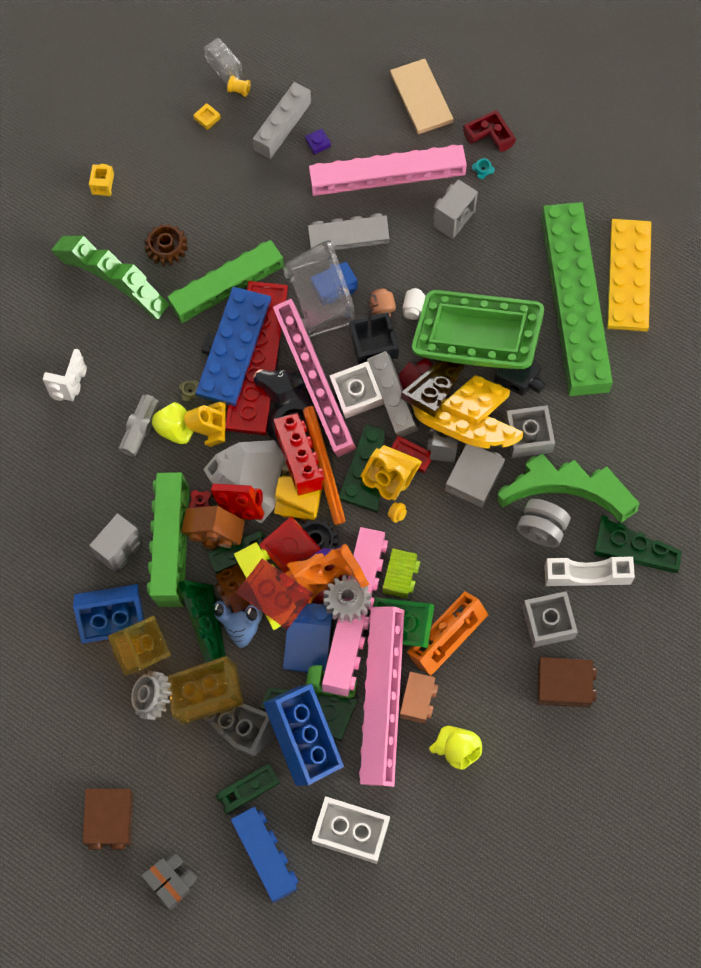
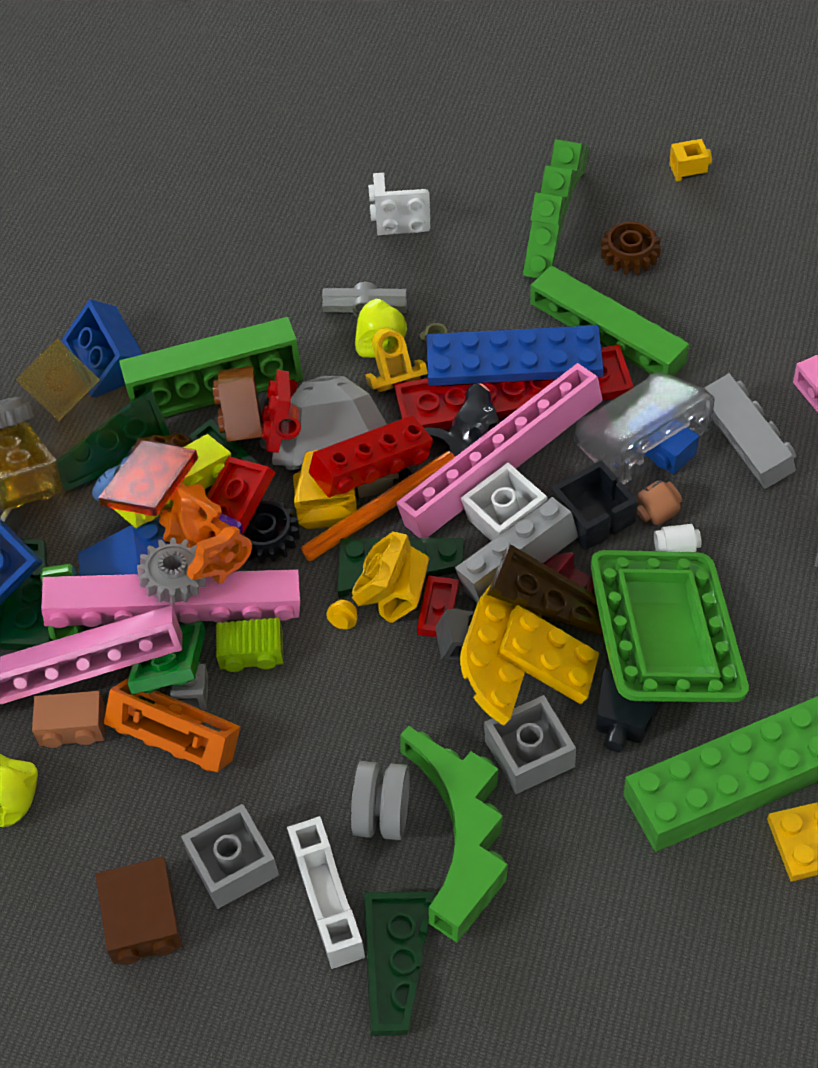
camera: 75 degrees right, 15 degrees down
(116, 543) = (188, 315): light grey brick -> none
(475, 474) = (433, 697): light grey brick -> none

